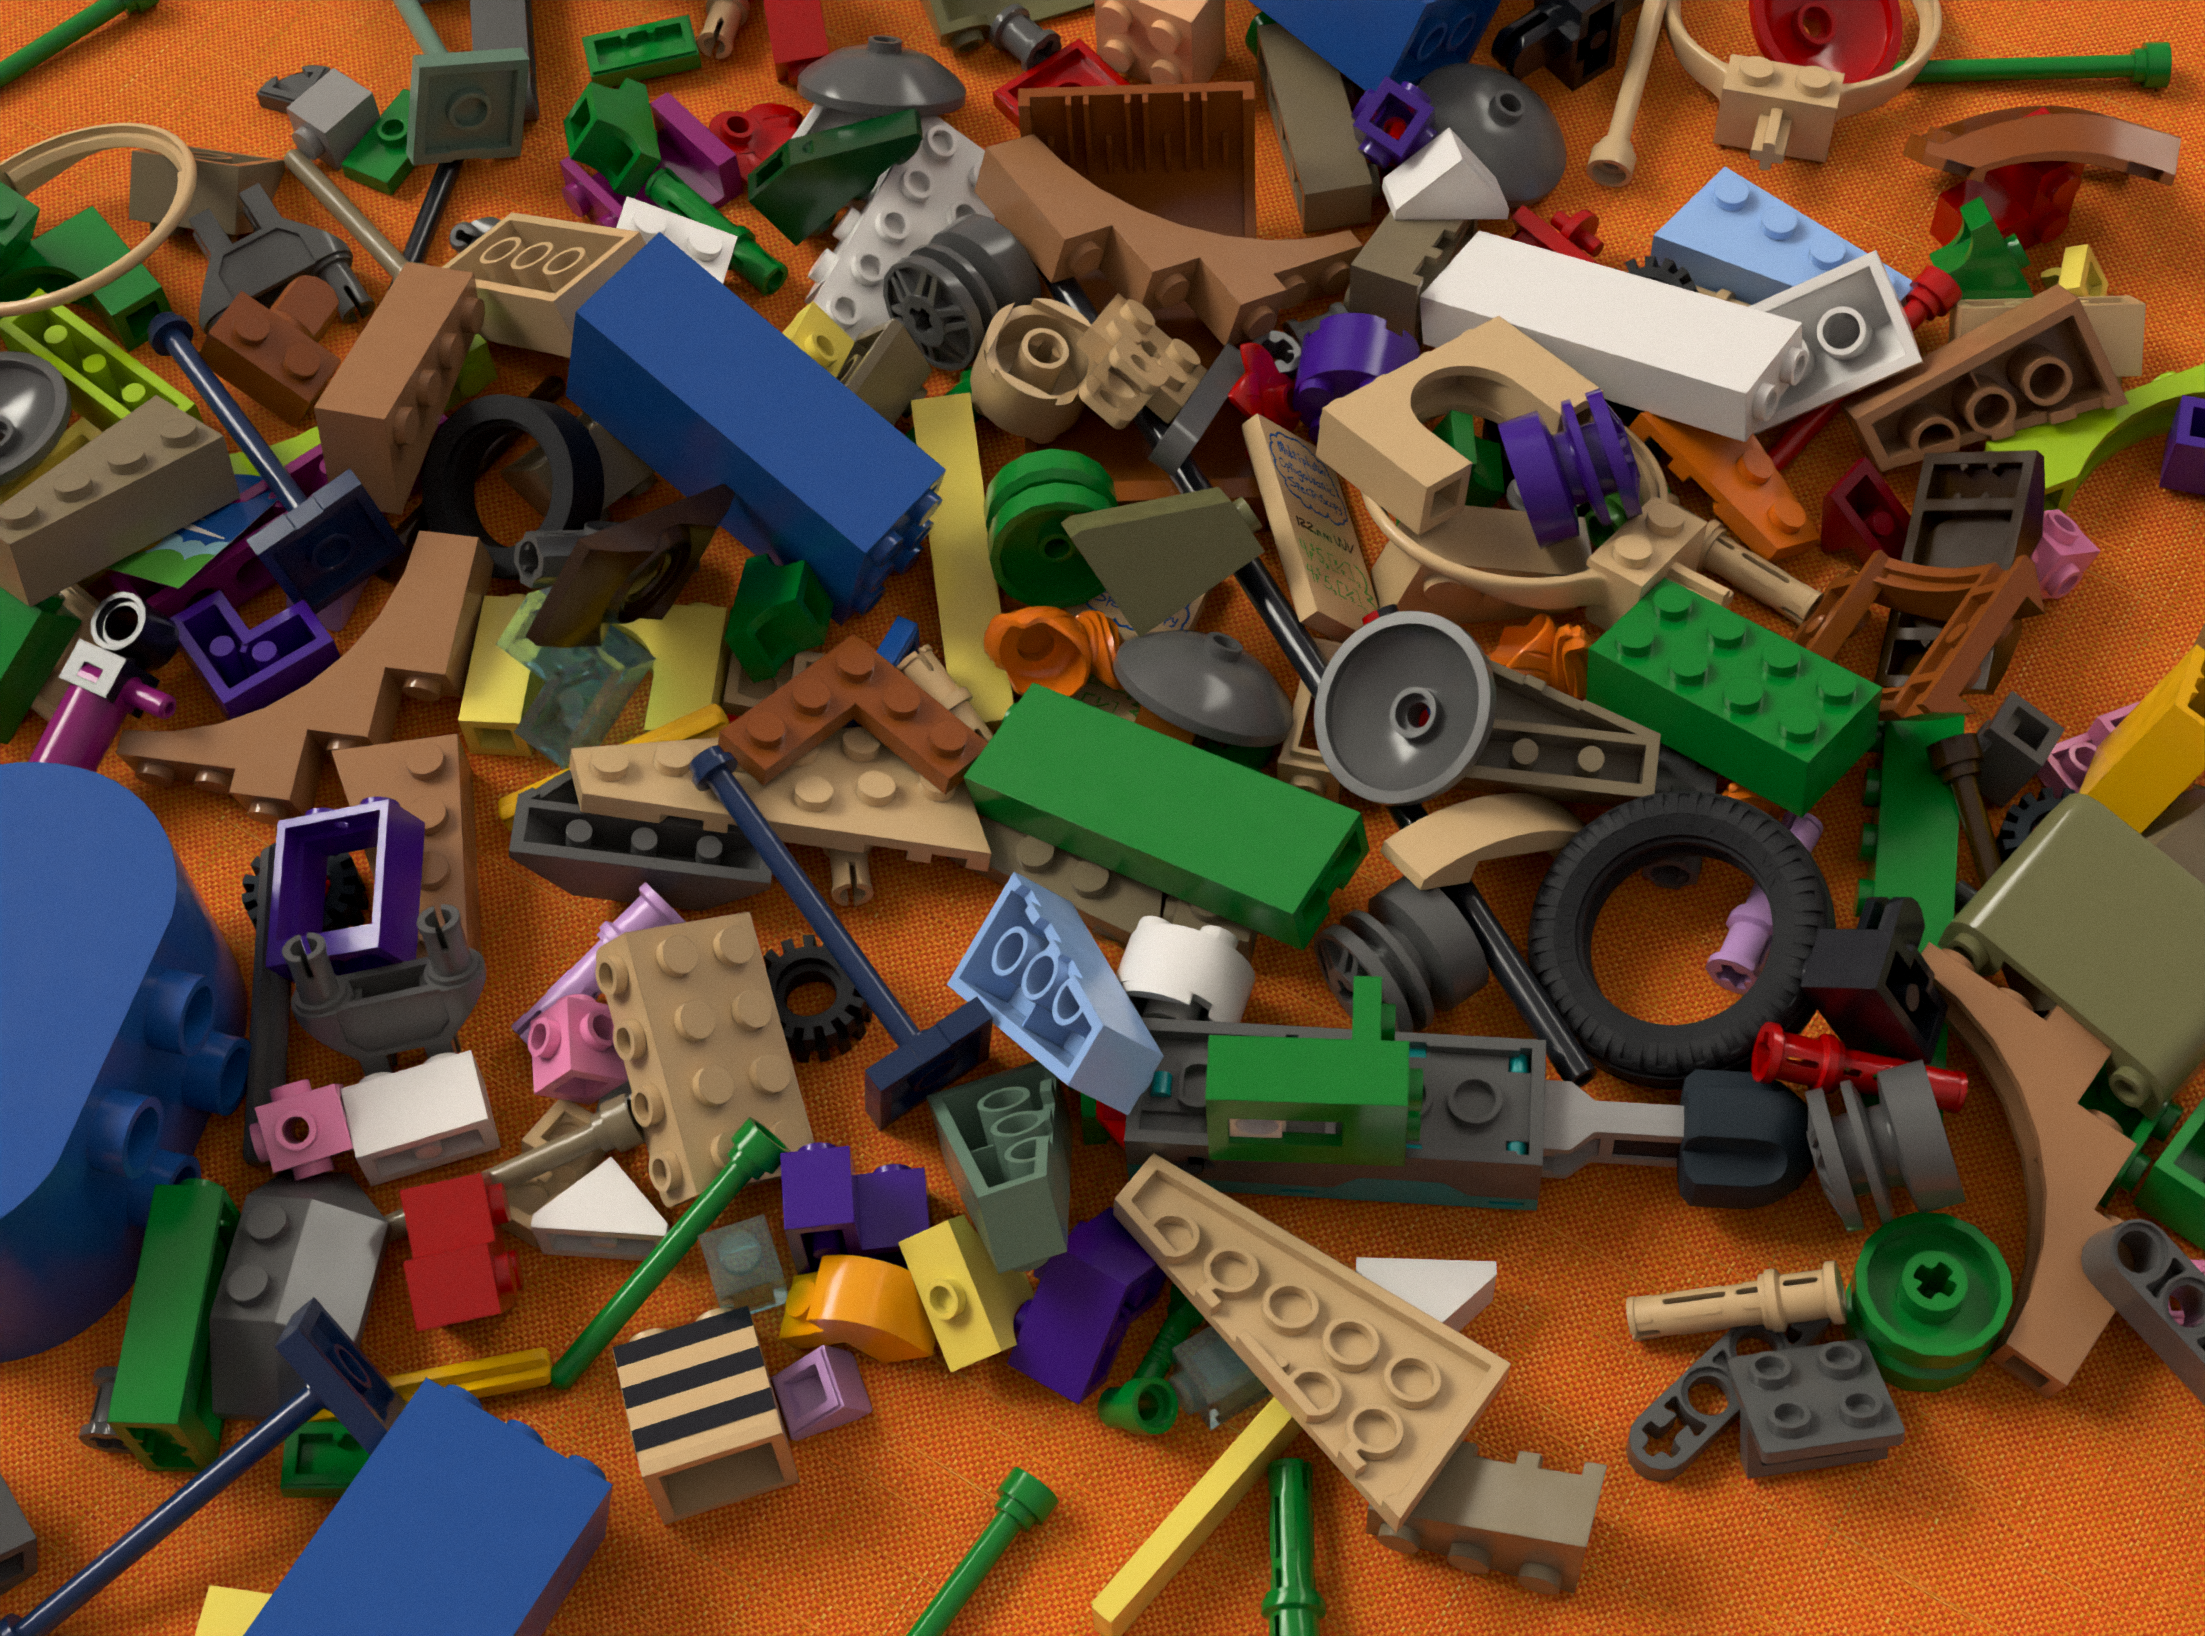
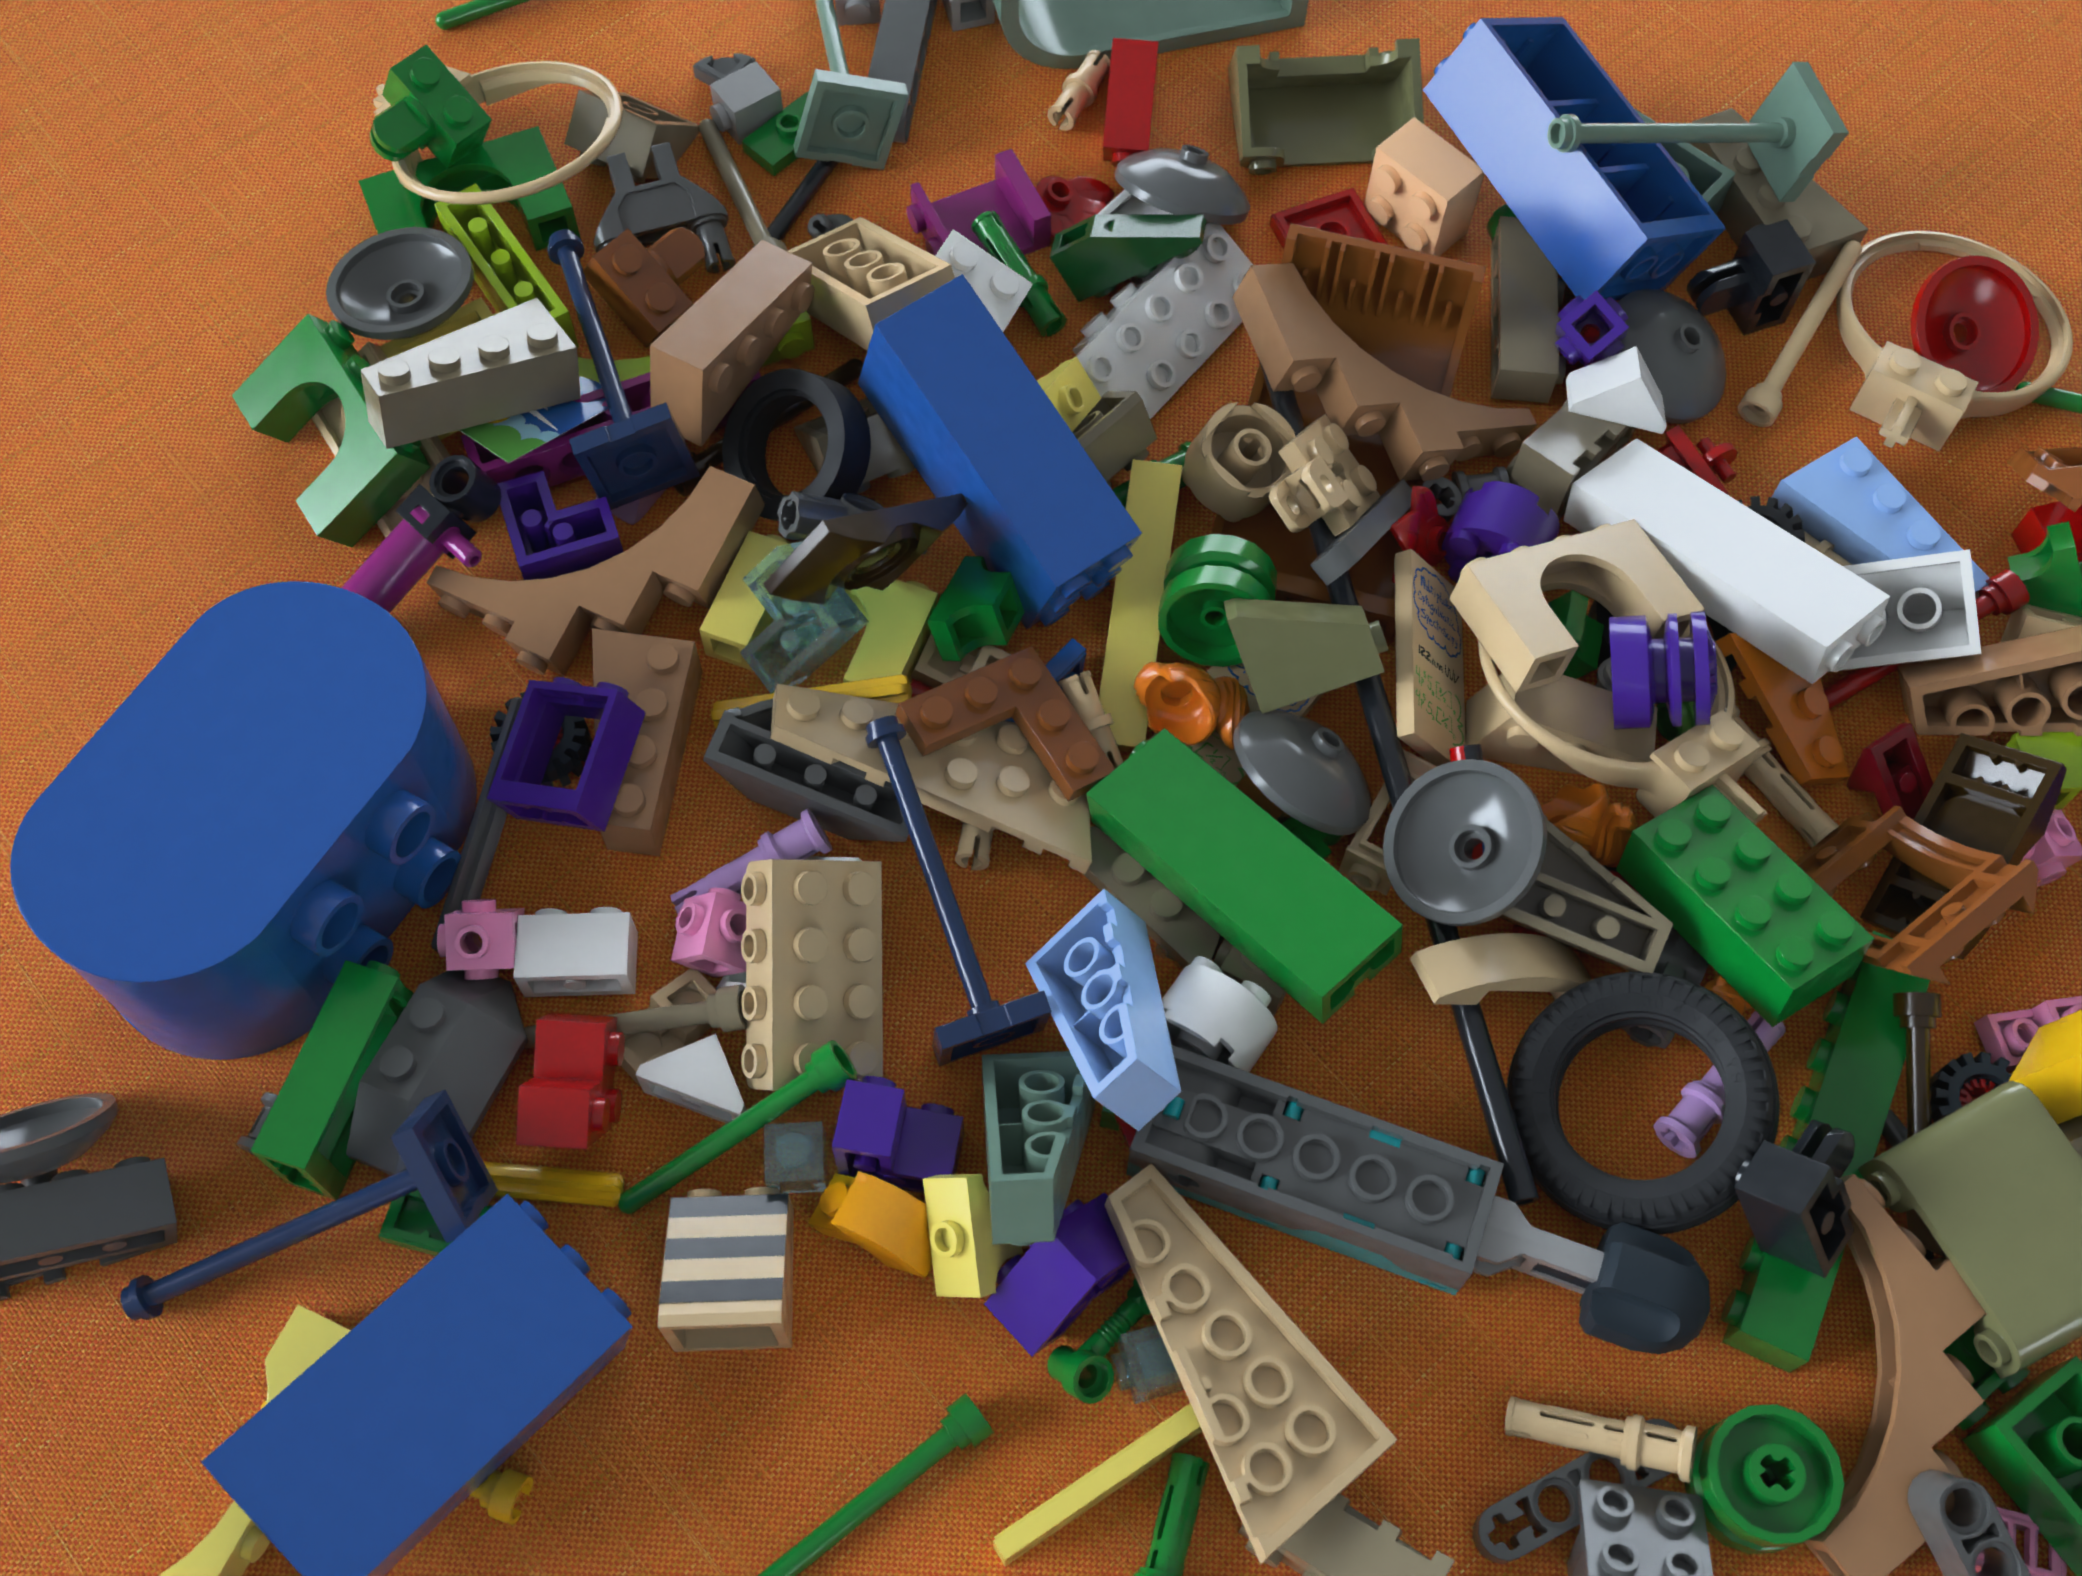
camera: 10 degrees right, 5 degrees up
(393, 1005) = (576, 858): dark grey connector -> none
(614, 134) = (960, 173): green brick -> none
(642, 51) = (1001, 109): green plate -> none
(821, 1392) = (830, 1278): lavender slope -> none
(825, 1029) = (914, 971): black tyre -> none
(957, 286) = (1196, 375): dark grey wheel -> none
(1022, 37) = (1308, 175): dark grey bush -> none
(1316, 1095) = (1299, 1168): green brick -> none
(1414, 944) = (1401, 1052): dark grey wheel -> none
(1441, 1288) = (1348, 1344): white slope -> none
(1826, 1061) = (1737, 1255): red pin -> none
(1883, 1146) = (1768, 1345): dark grey wheel -> none
(2014, 748) = (1969, 1010): dark grey brick -> none

